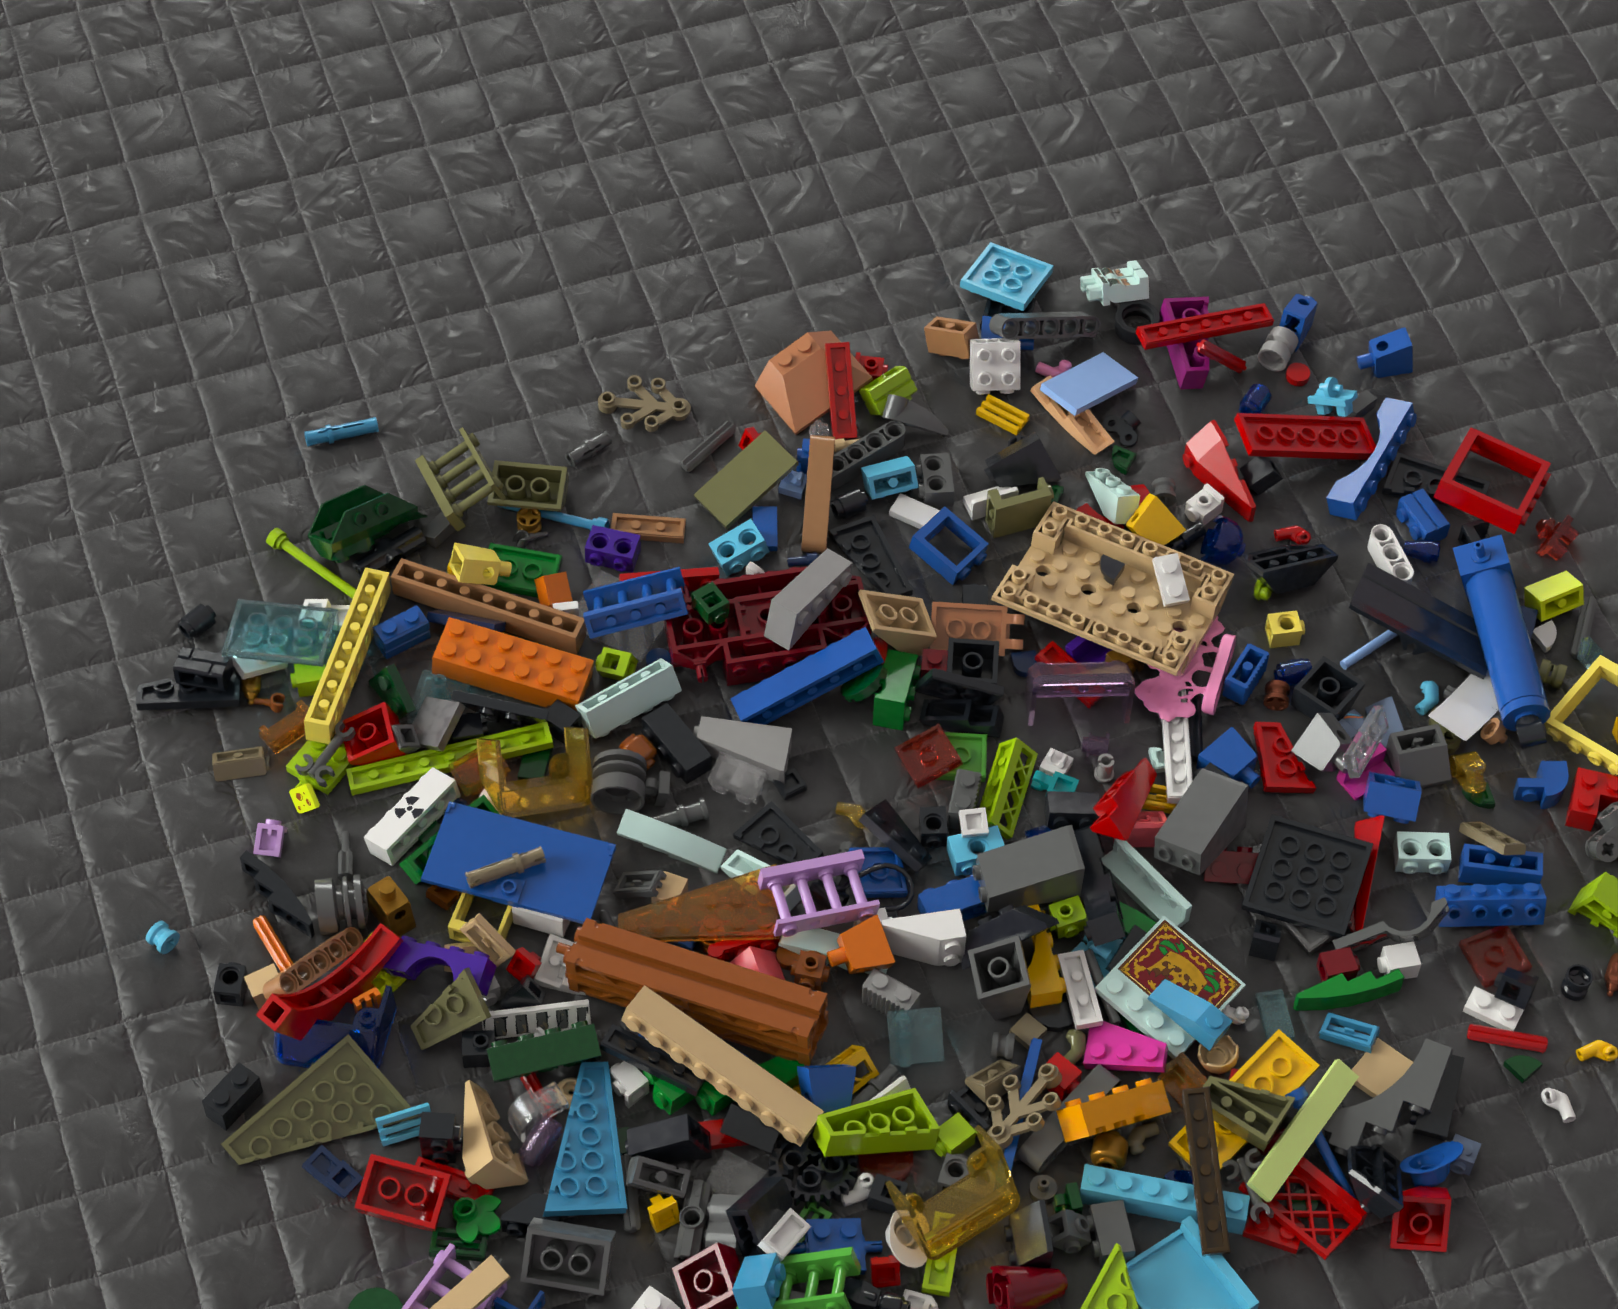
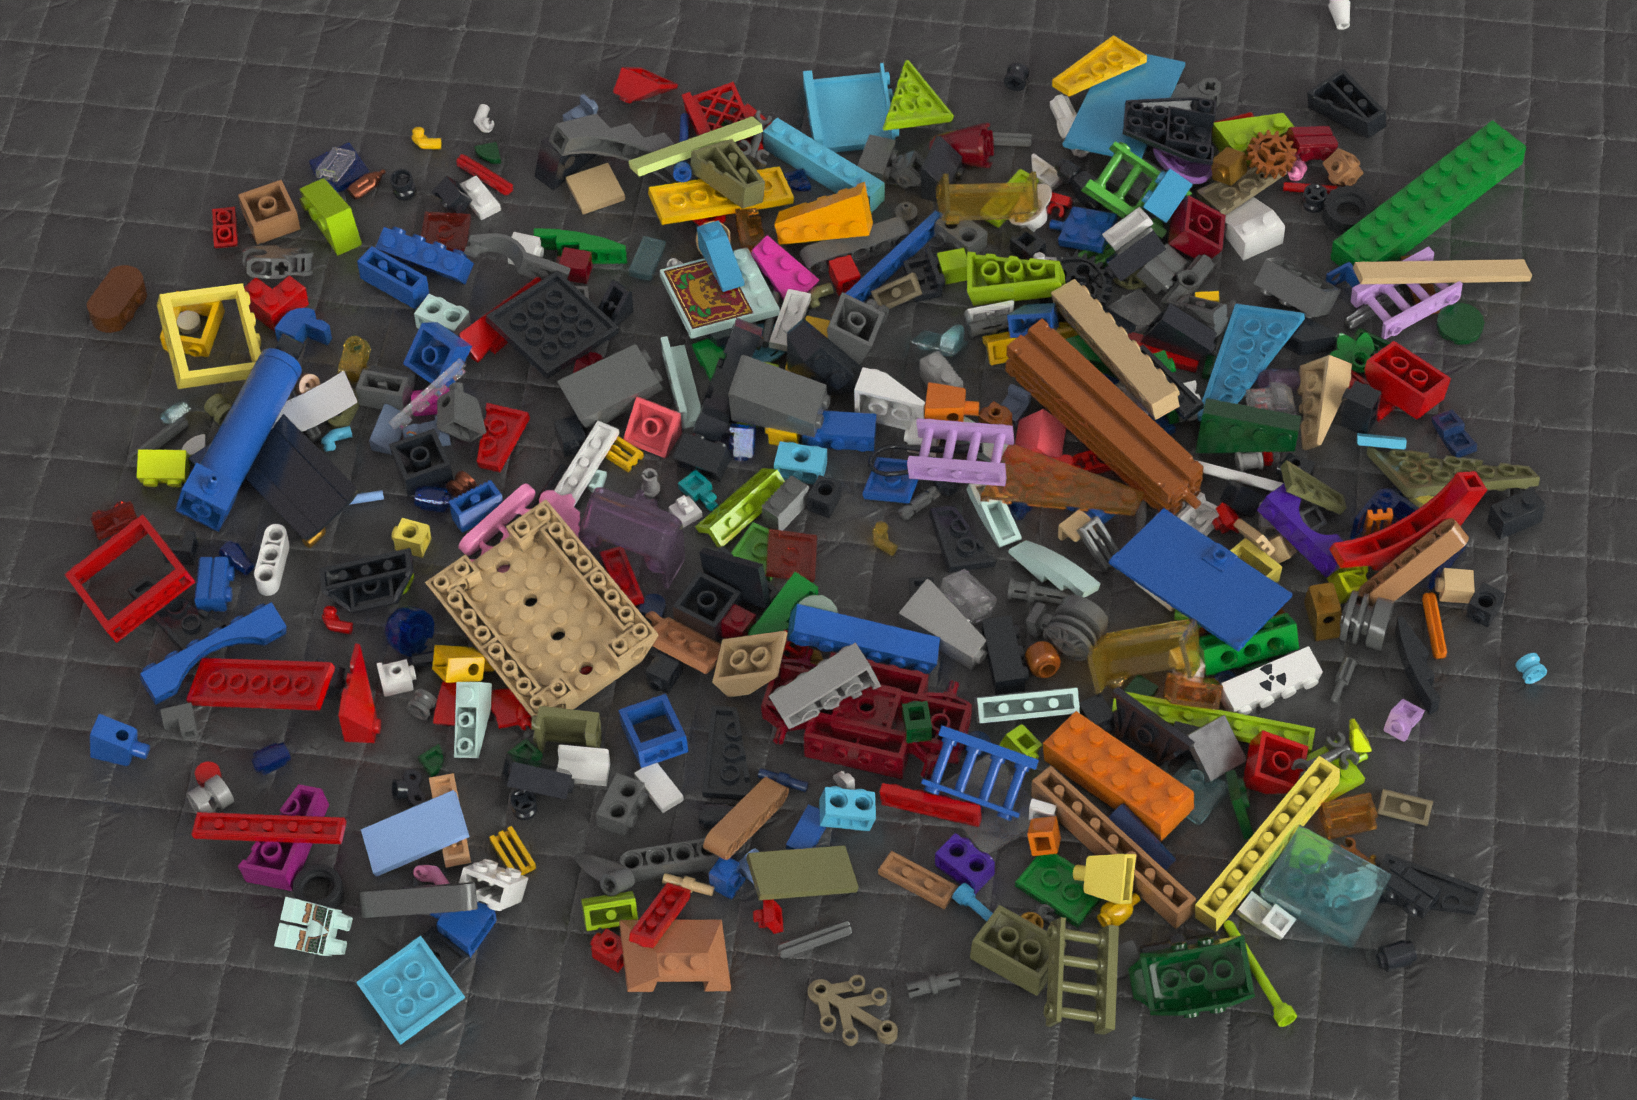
camera: 150 degrees left, 0 degrees up
(401, 632) = (1203, 859): blue brick -> none
(406, 738) = (1247, 744): dark grey slope -> none
(505, 867) = (1246, 567): dark tan pin -> none
(819, 428) = (700, 903): clear plate -> none
(889, 477) = (665, 819): medium azure brick -> none
(895, 834) = (860, 501): black wing -> none
(950, 337) = (513, 934): medium nougat brick -> none
(973, 822) = (794, 466): white tile -> none
(1004, 1130) = (895, 247): dark tan plant -> none
(1069, 1200) = (893, 192): dark green tile -> none
(1111, 569) = (528, 635): black tile -> none
(1124, 802) = (658, 437): red wedge -> none
(1170, 580) = (486, 593): white plate -> none
(1205, 1171) = (788, 144): dark brown tile -> none
(1221, 356) = (274, 798): red axle -> none
(1231, 756) = (541, 449): blue torso -> none
(1299, 312) = (167, 815): blue torso -> none
(1333, 394) = (203, 718): medium azure hips -> none
(1347, 1036) = (612, 235): dark azure tile -> none
(1376, 1179) = (664, 97): black wedge -> none
(1433, 1164) = (611, 105): blue piece -> none
(1492, 838) = (385, 291): dark tan tile -> none

